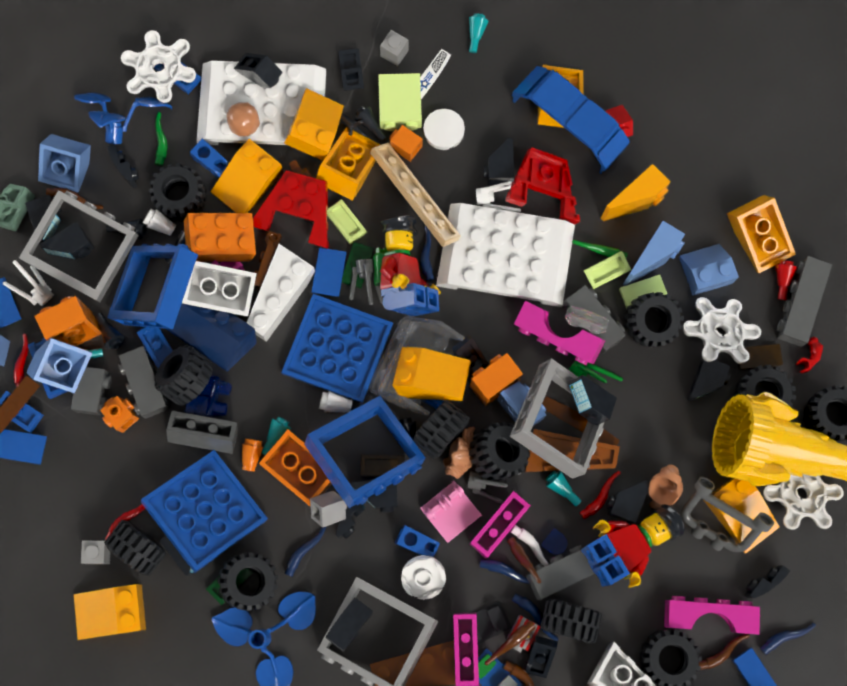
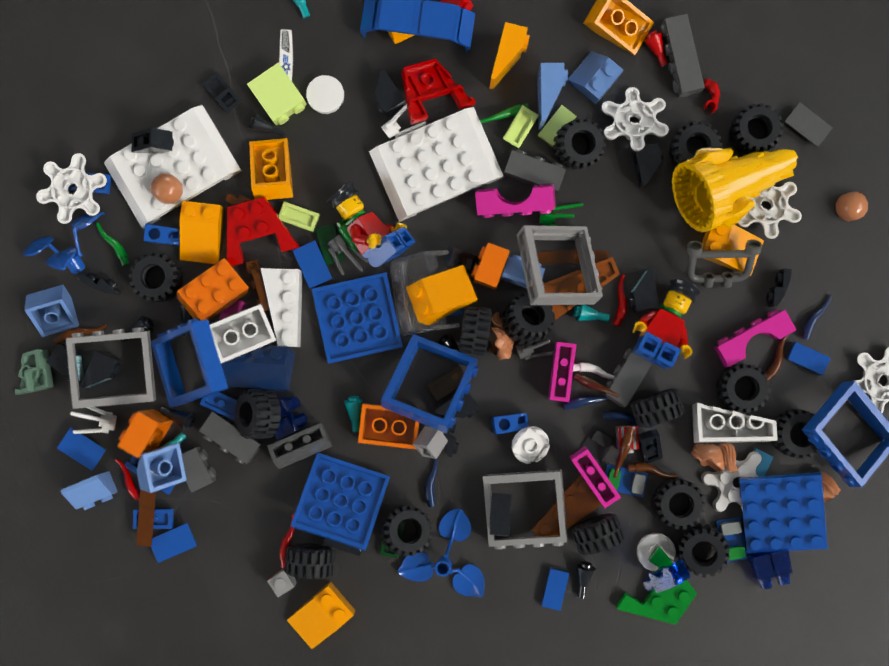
camera: 30 degrees left, 10 degrees up
(119, 413) = (229, 472): orange brick -> none
(158, 222) = (157, 309): white cone -> none
(251, 453) = (345, 436): orange cone -> none
(314, 124) = (224, 156): light orange slope -> none
(334, 403) = (382, 360): white cone -> none
(352, 125) = (252, 137): black bar -> none
(394, 48) = (244, 53): light grey brick -> none
(406, 142) = (303, 125): orange brick -> none
(415, 194) = (337, 162): tan tile -> none
(424, 259) = (379, 209): dark blue animal -> none
(450, 511) = (519, 384): bright pink hinge -> none
(555, 542) = (609, 357): clear blue tile -> none
(586, 319) = (530, 177): clear plate -> none
(592, 400) = (573, 237): black slope -> none
(665, 487) = (666, 266): nougat hair -> none
(762, 356) = (677, 118): dark brown tile -> none

